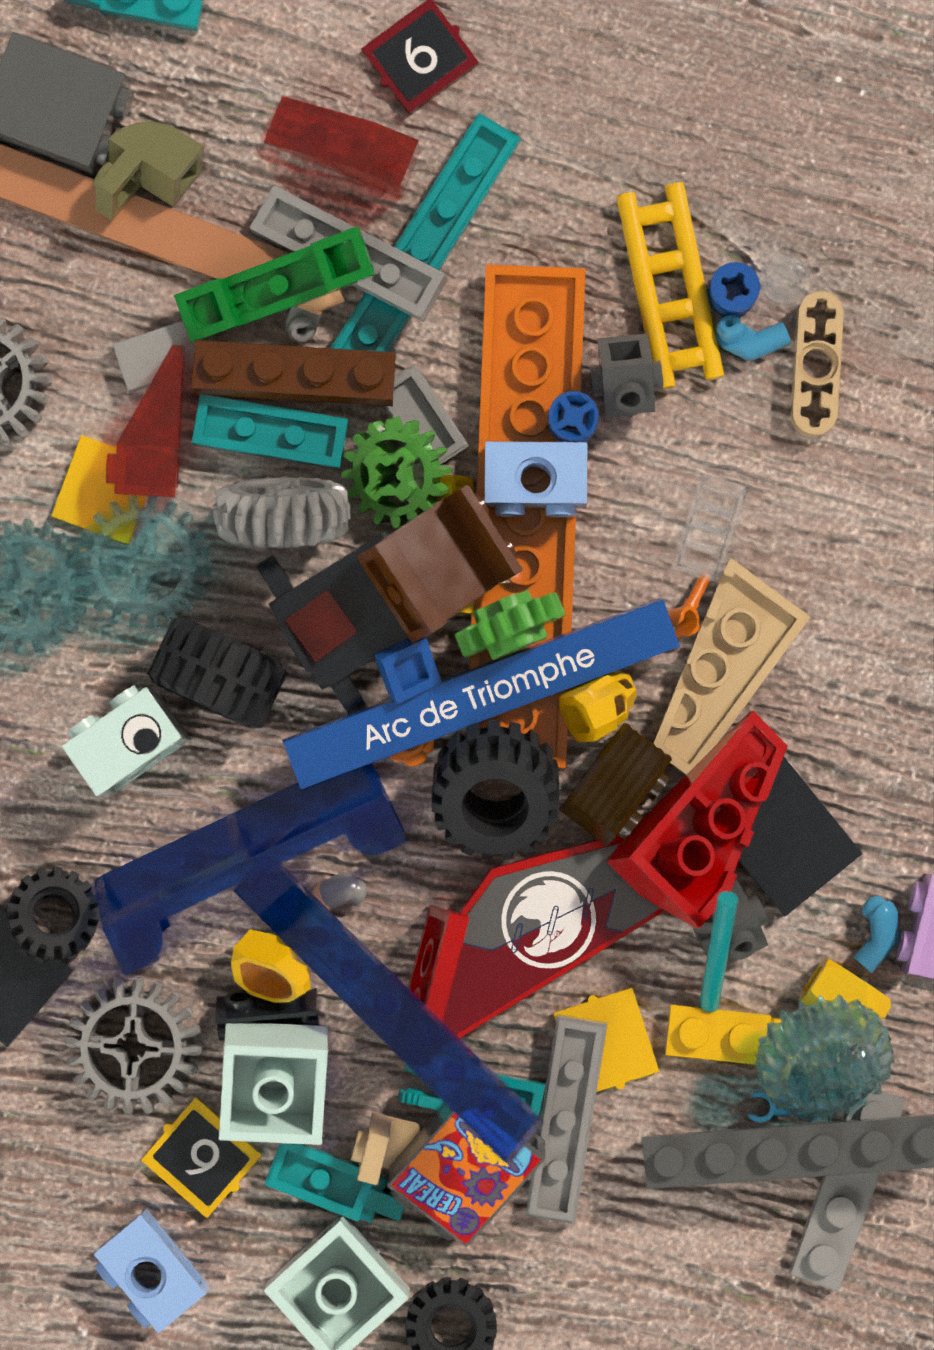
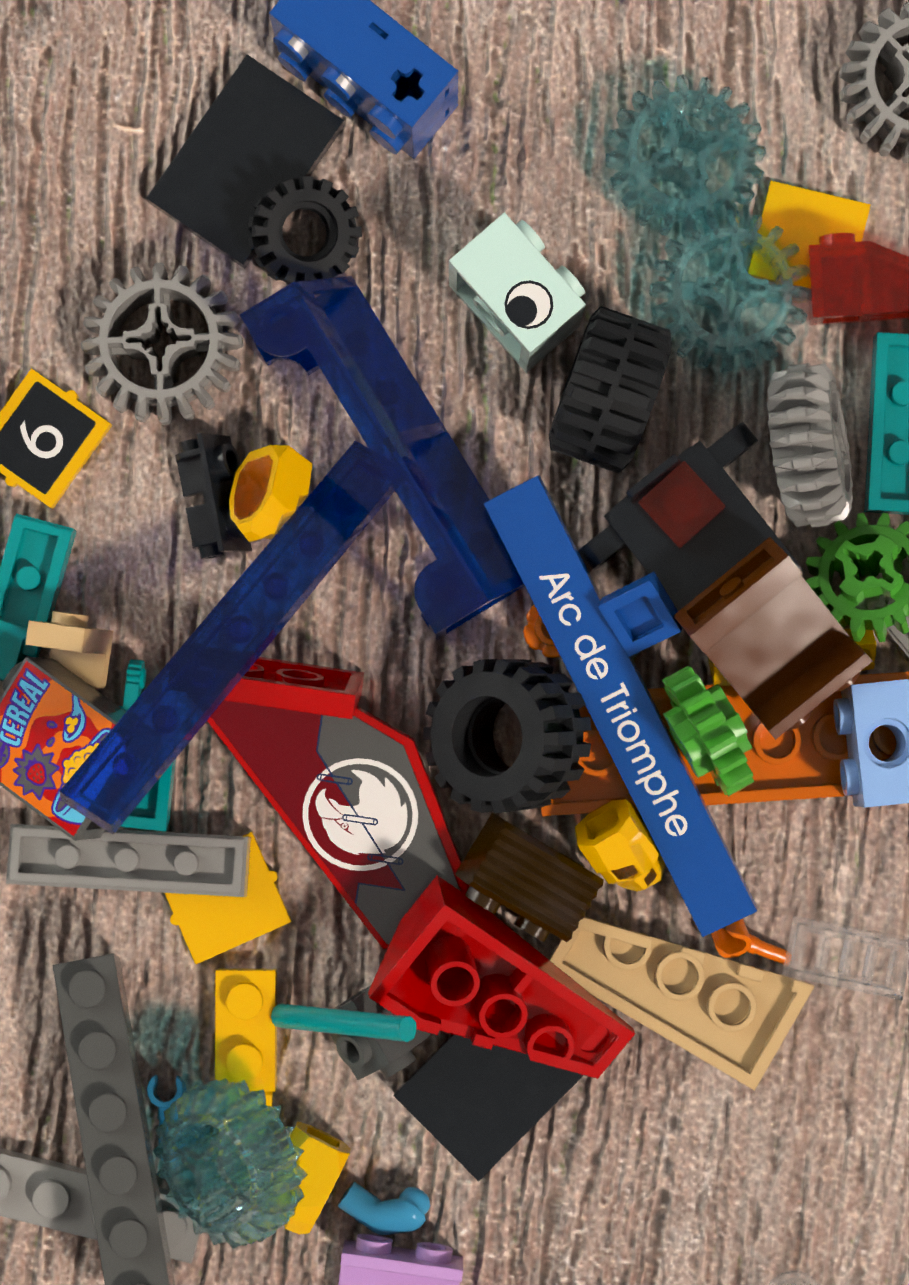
camera: 80 degrees right, 0 degrees up
(273, 1083) = (133, 509): light aqua brick -> none
(340, 890) = (368, 565): light grey arm -> none

